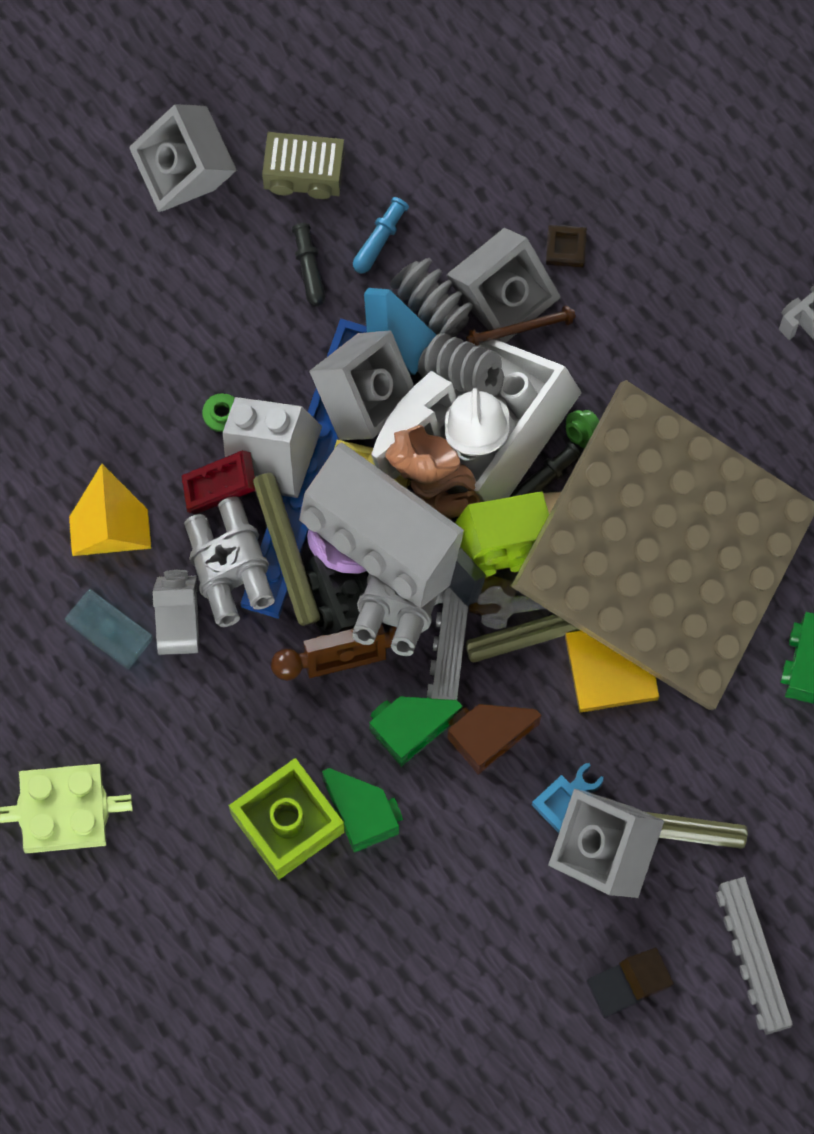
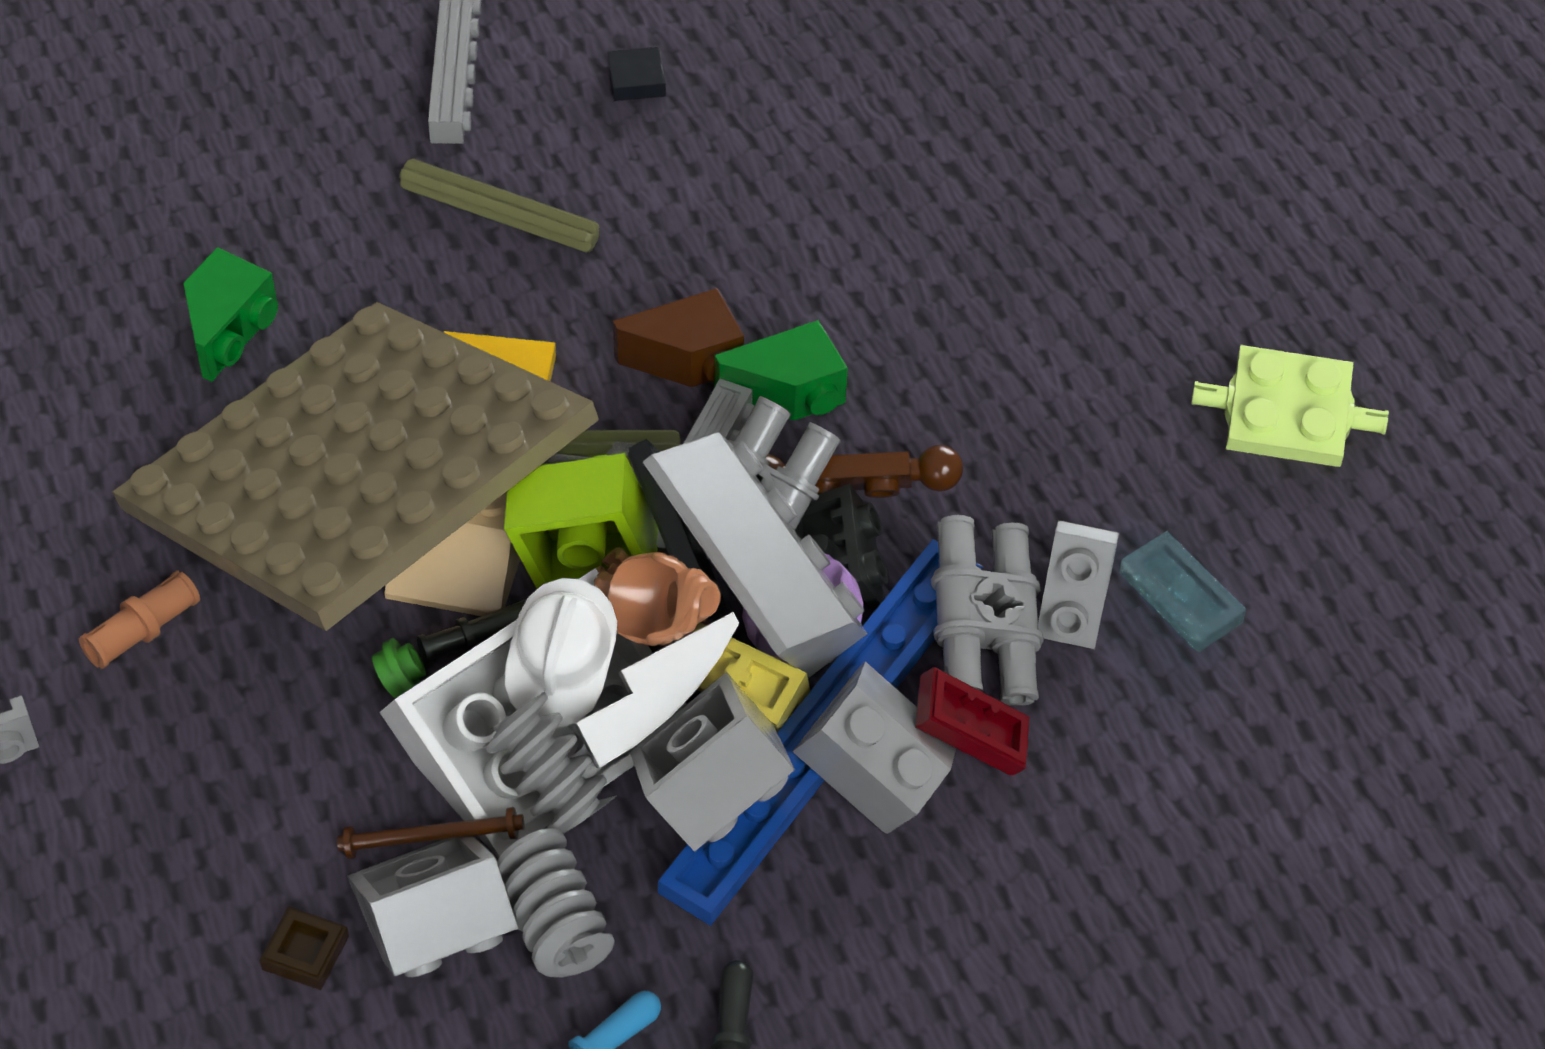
camera: 165 degrees left, 20 degrees down
(108, 518) = (1153, 720): yellow slope -> none
(210, 418) = (935, 852): bright green plate -> none
(286, 549) = (898, 600): olive axle -> none
(287, 818) = (991, 301): lime brick -> none
(363, 809) = (886, 301): green slope -> none
(386, 313) = (628, 849): dark azure slope -> none
(555, 799) = (614, 252): dark azure plate -> none
(606, 844) = (586, 176): light grey slope -> none
(646, 973) = (591, 70): dark brown tile -> none
(757, 418) = (139, 619): none -> nougat pin

